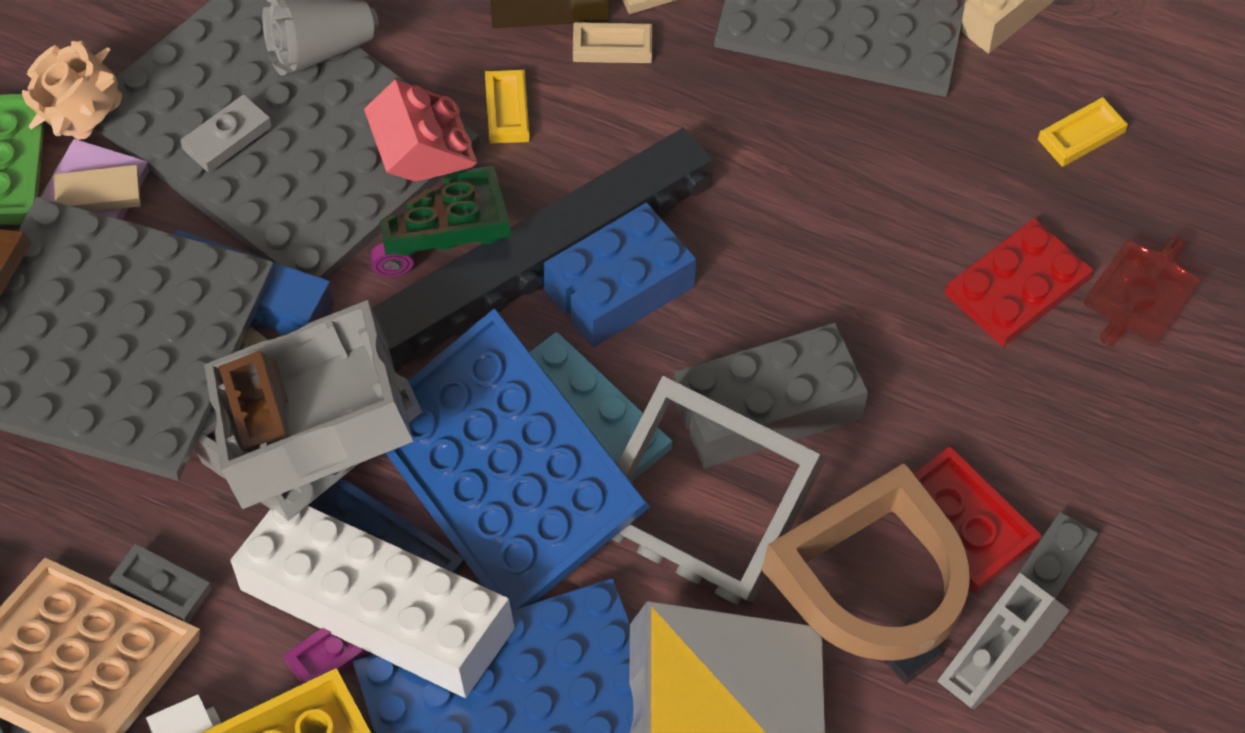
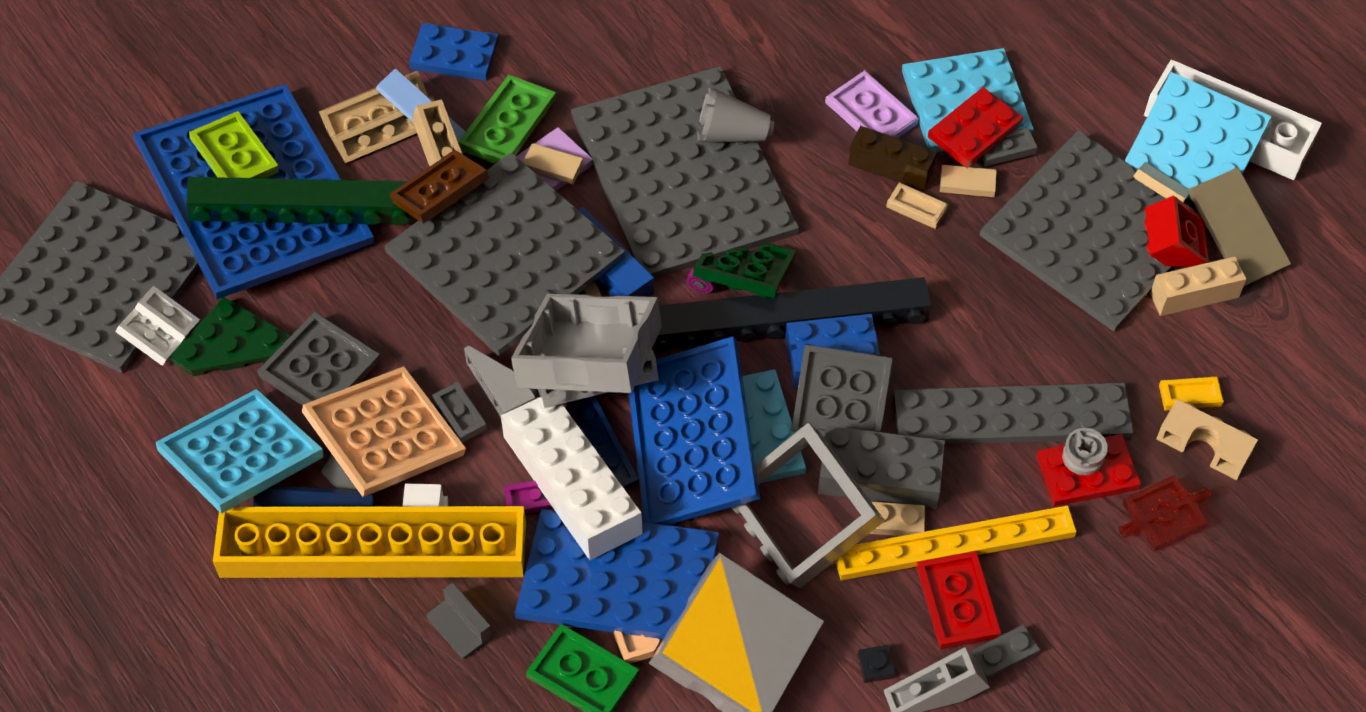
camera: 30 degrees right, 0 degrees up
(71, 90) = (568, 96): light nougat brick -> none
(198, 520) = (497, 382): none -> light grey slope
(226, 133) = (645, 161): light grey plate -> none
(256, 399) = (561, 326): reddish brown arch -> none
(418, 132) = (758, 210): coral slope -> none
(507, 106) = (827, 217): yellow tile -> none
(665, 318) = (841, 389): none -> dark grey plate
(838, 444) = (900, 519): none -> tan plate
(885, 253) = (1012, 412): none -> dark grey plate
(907, 498) = (876, 563): medium nougat window -> none
(944, 424) = (980, 536): none -> yellow plate
(1020, 268) = (1082, 461): none -> light grey wheel
(1169, 174) = (1189, 424): none -> tan arch

